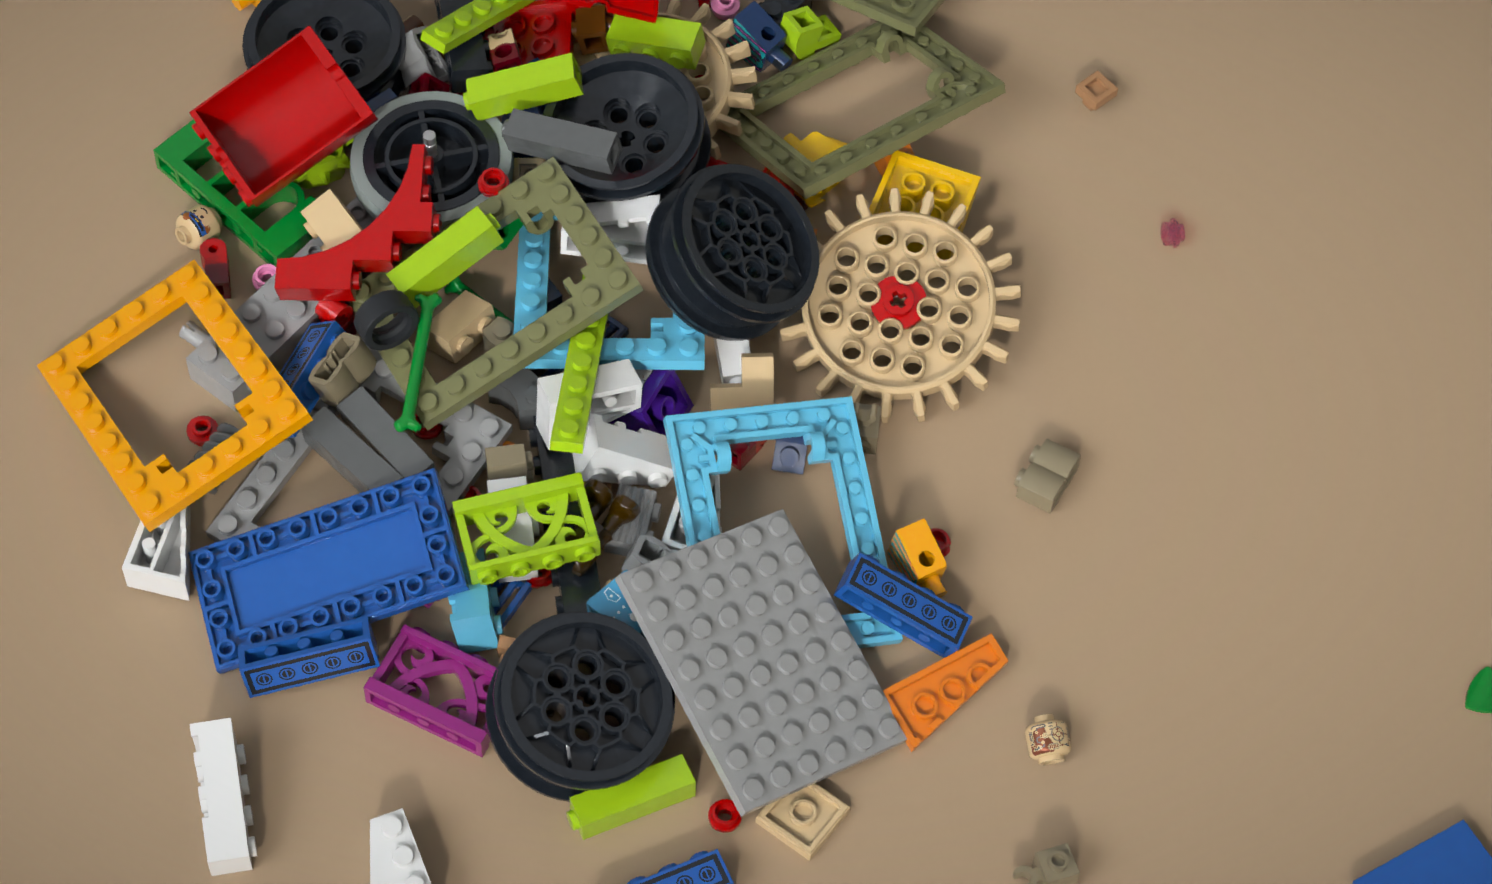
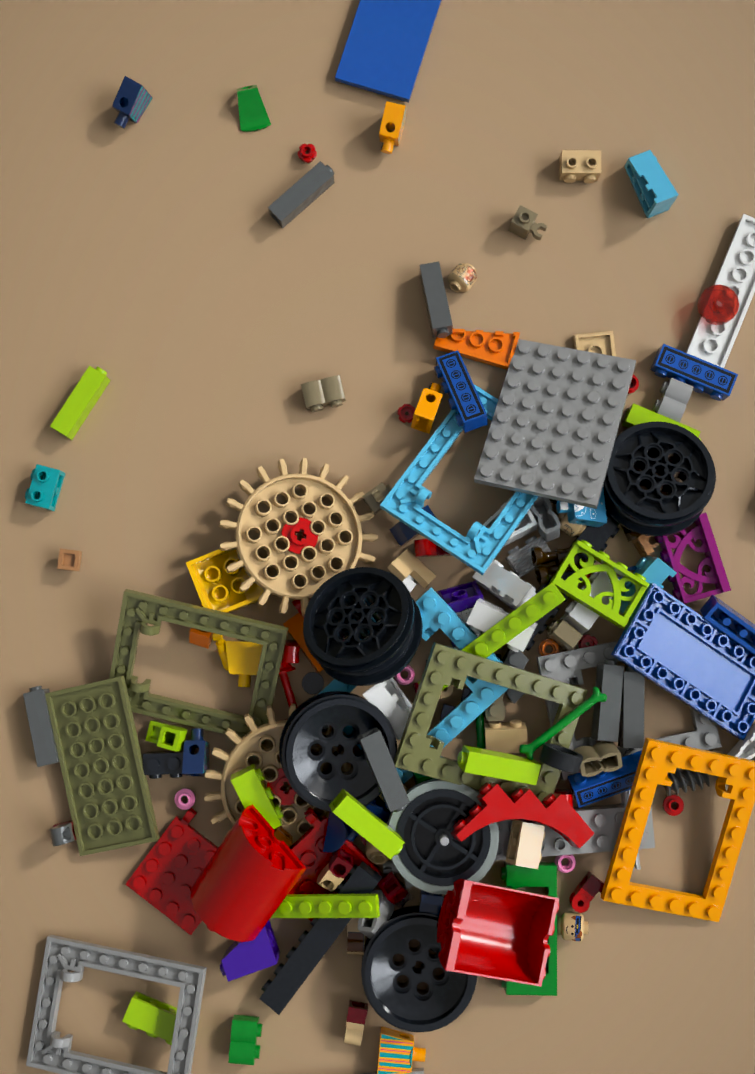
camera: 130 degrees left, 25 degrees up
(492, 176) = (432, 793): red plate -> none
(642, 302) = (409, 679): none -> bright pink plate
(650, 839) = (673, 399): none -> light grey brick
(1046, 680) = (436, 300): none -> dark grey brick
(1172, 233) = (124, 453): clear pink plate -> none
(1204, 131) = (44, 487): none -> teal brick
(1275, 234) = (81, 402): none -> lime brick
(1331, 655) = (302, 194): none -> dark grey brick
(1331, 825) = (393, 120): none -> light orange torso
(1382, 717) = (307, 158): none -> red plate

